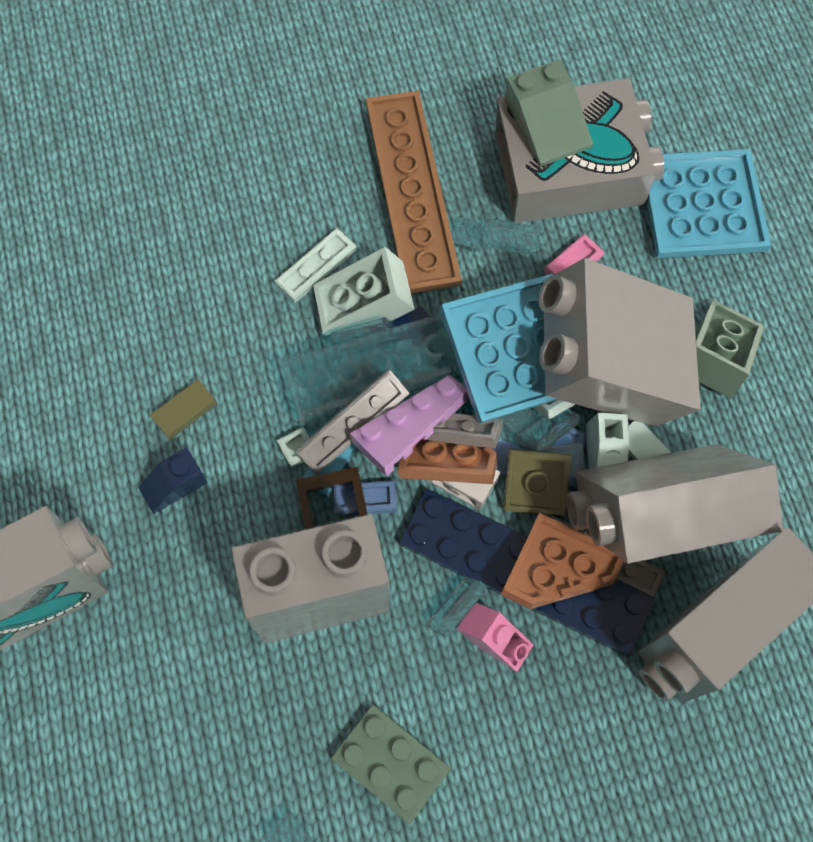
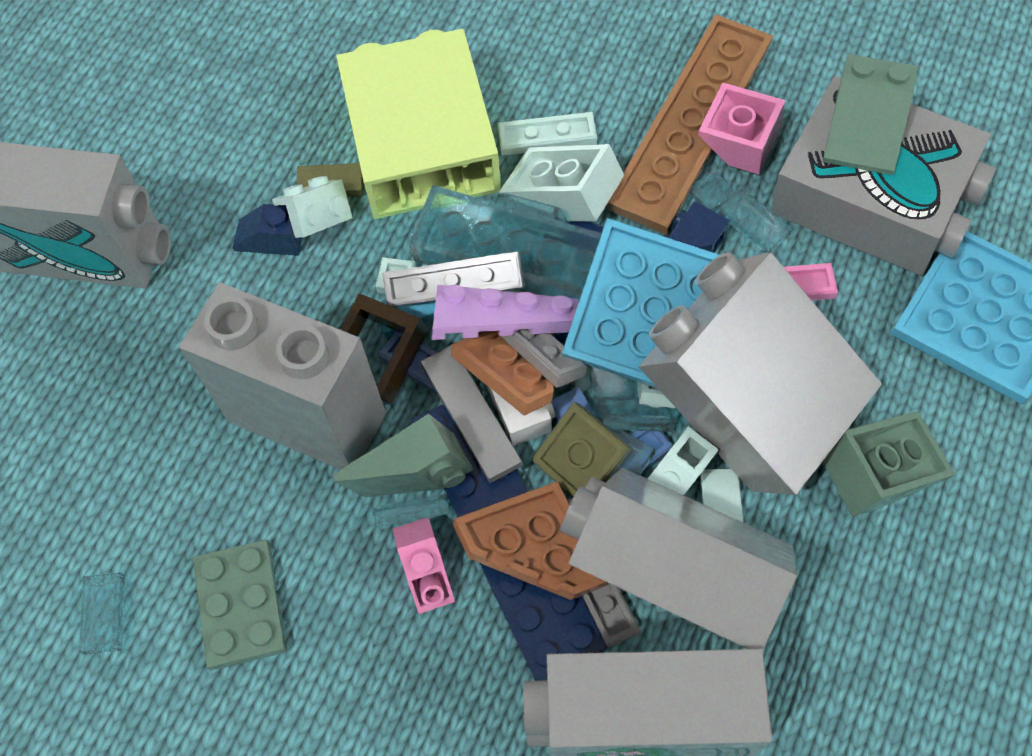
camera: 45 degrees right, 5 degrees down
(198, 436) = (315, 206): none -> light aqua bracket
(220, 318) = (418, 121): none -> yellowish green brick
(442, 508) = (471, 415): none -> light grey tile
(444, 566) = (413, 460): none -> sand green slope
(455, 172) = (742, 126): none -> bright pink slope
(484, 270) = (700, 228): none -> dark blue slope

